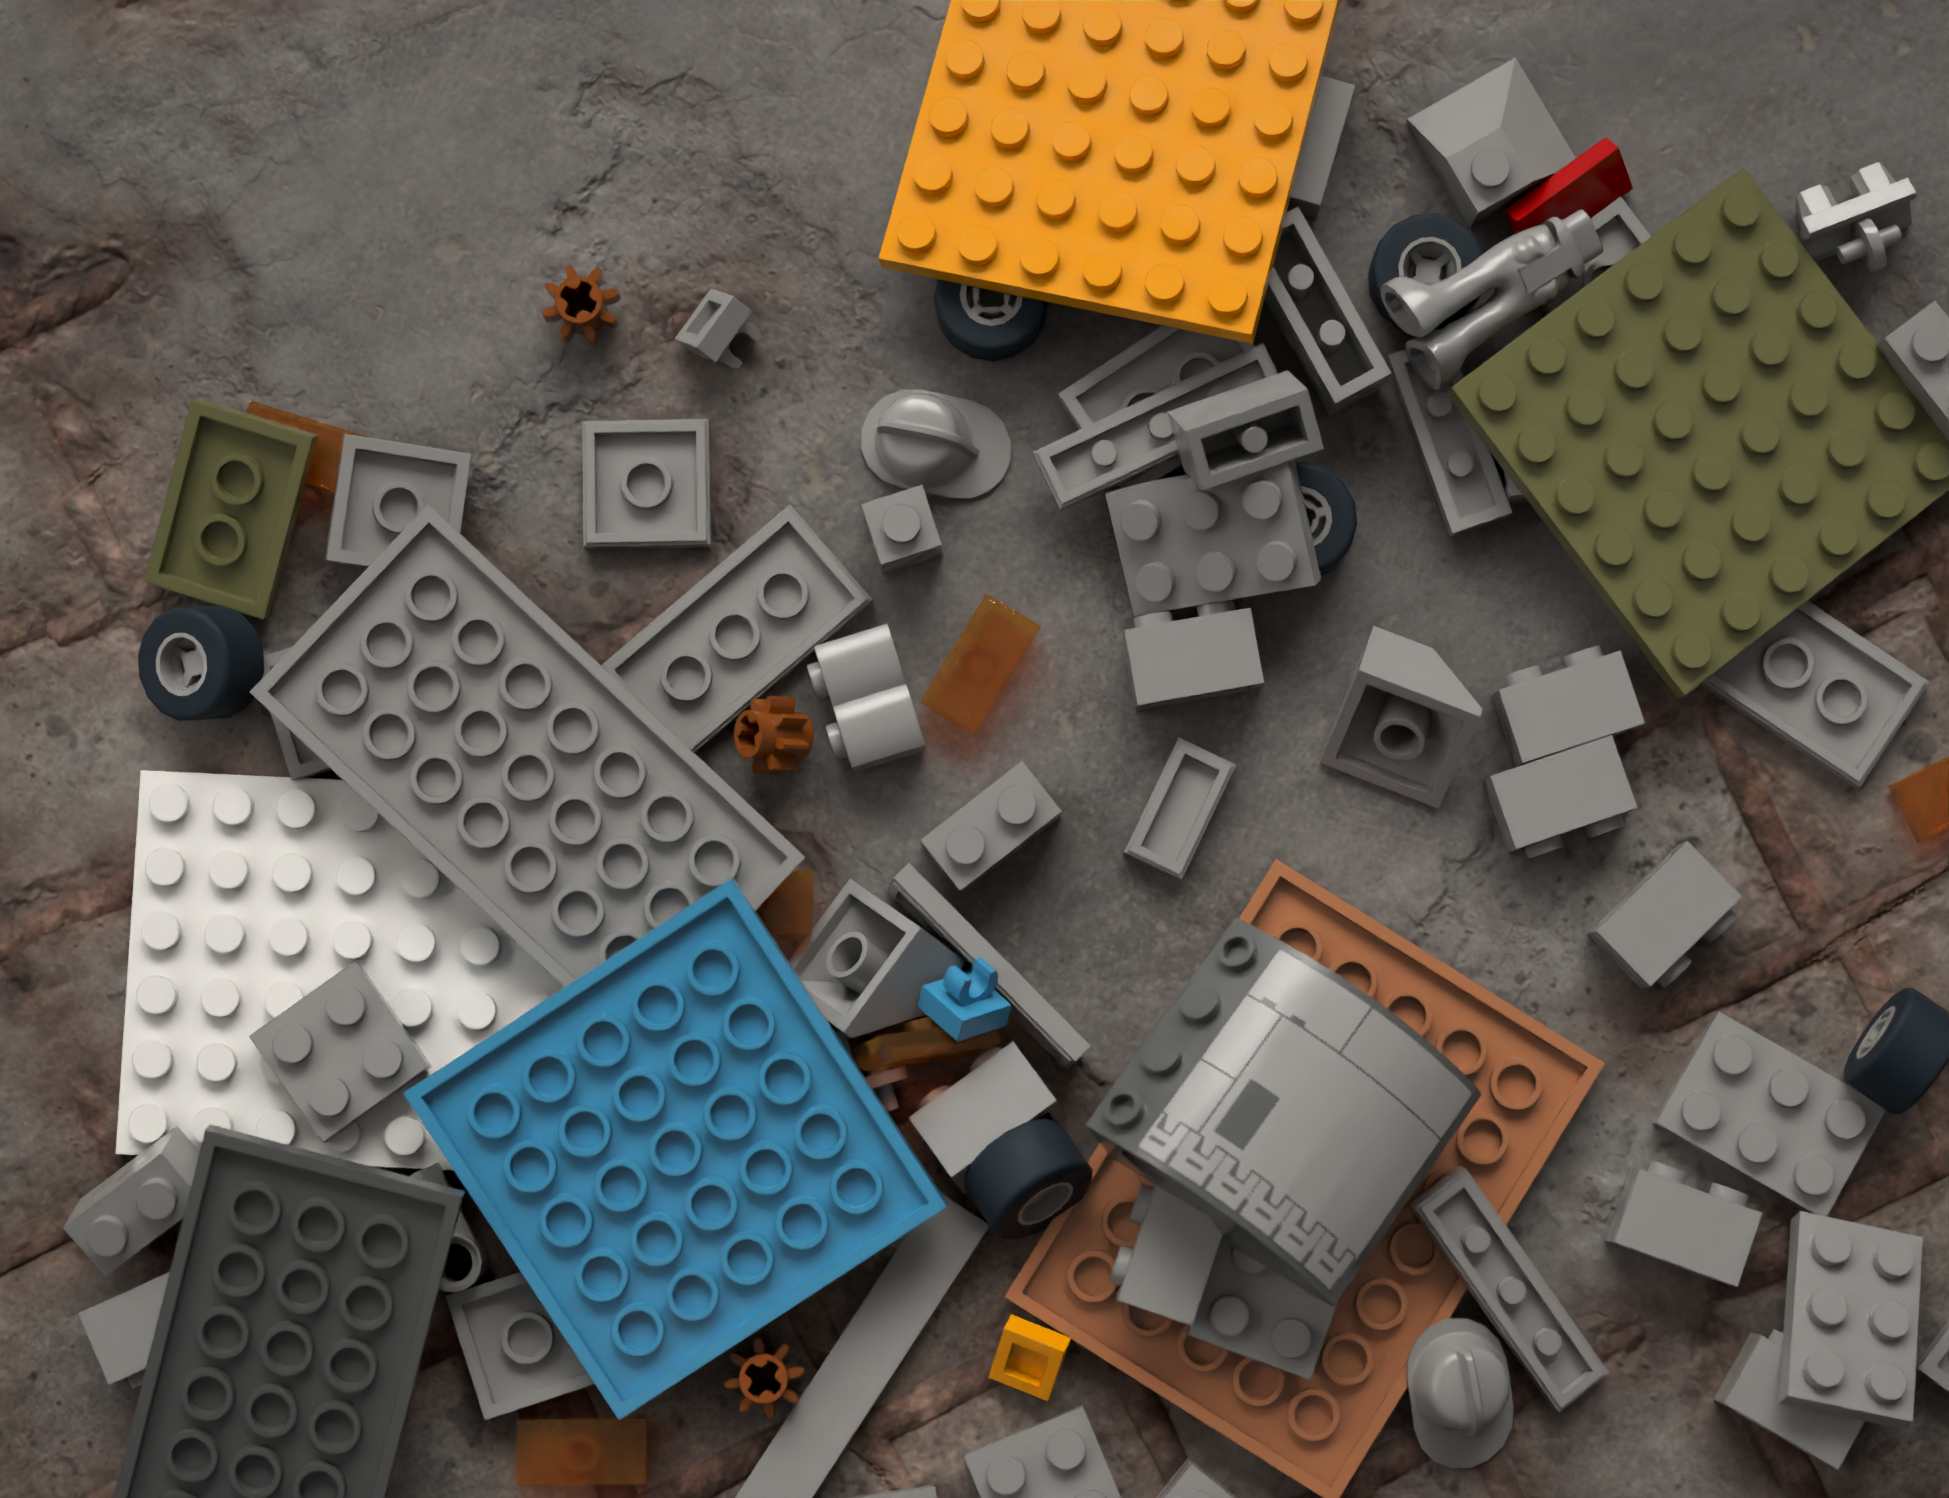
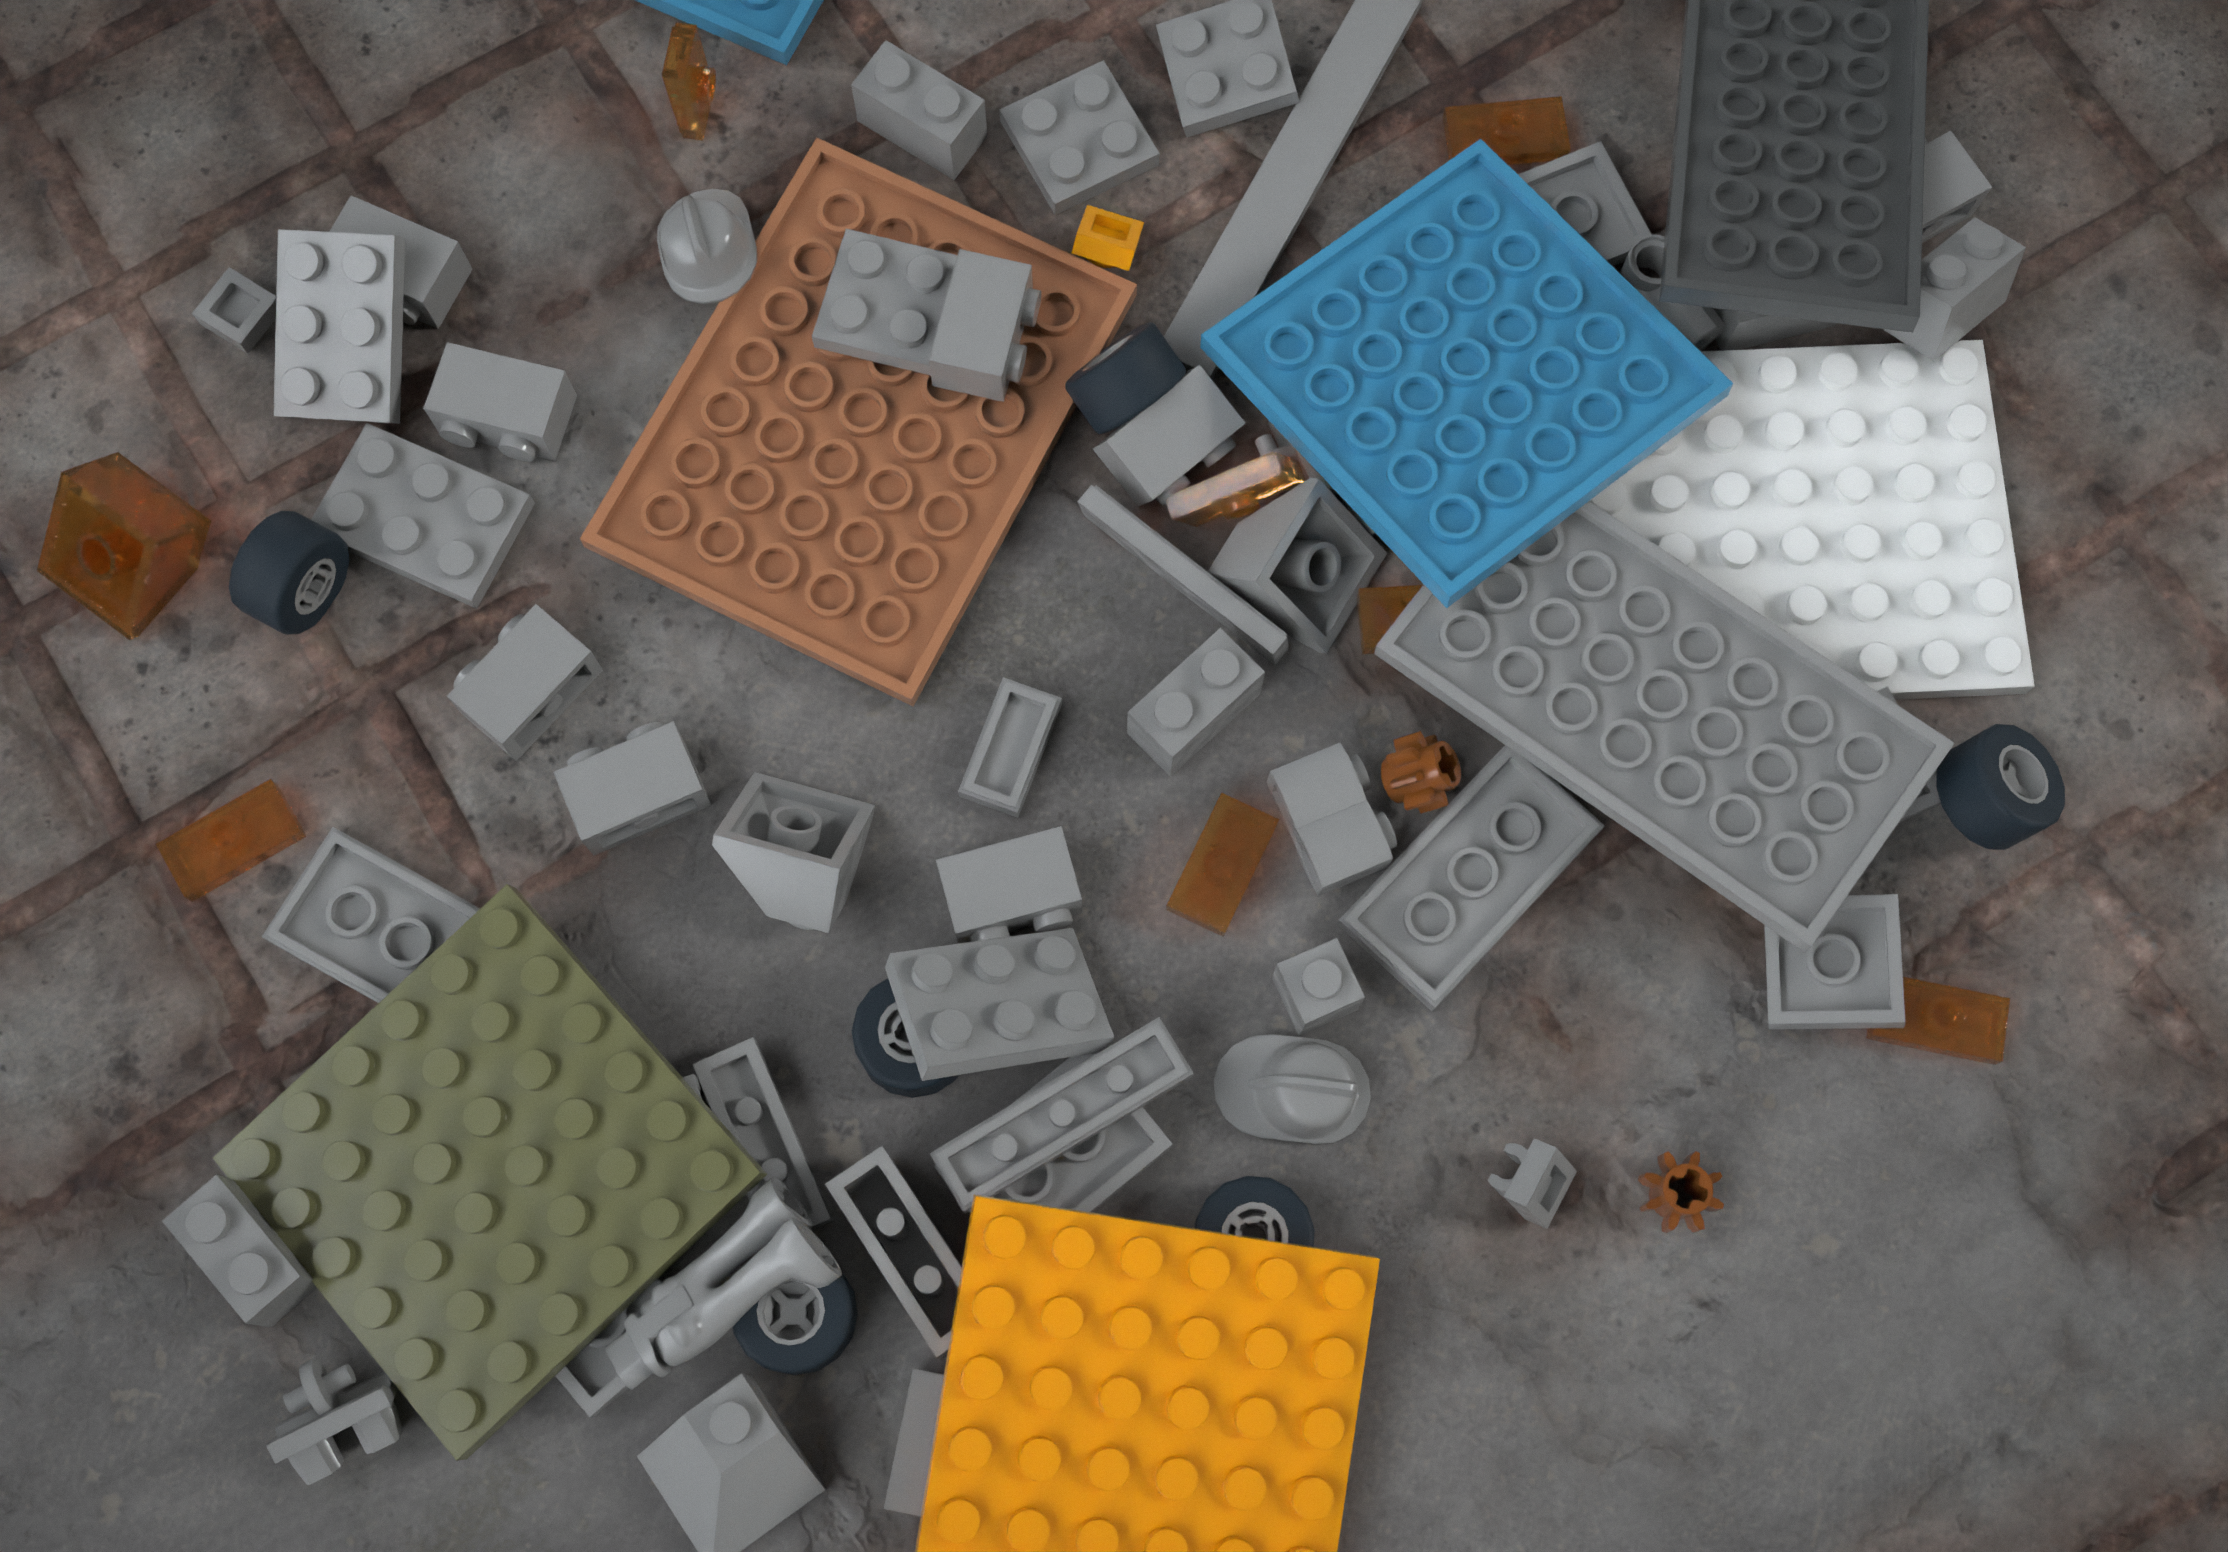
camera: 170 degrees right, 10 degrees down
(231, 508) = (2002, 944): olive plate -> none
(340, 1051) = (1793, 437): light grey plate -> none
(646, 484) = (1582, 1018): light grey tile -> none
(746, 1378) = (1348, 184): dark orange gear -> none
(965, 1001) = (1203, 525): dark azure tile -> none
(1245, 430) = (973, 1100): light grey brick -> none
(1285, 1109) = (887, 435): light grey slope -> none
(1508, 1288) = (665, 331): light grey tile -> none
(1566, 706) = (628, 874): light grey brick -> none
(1585, 184) = (642, 1416): red tile -> none

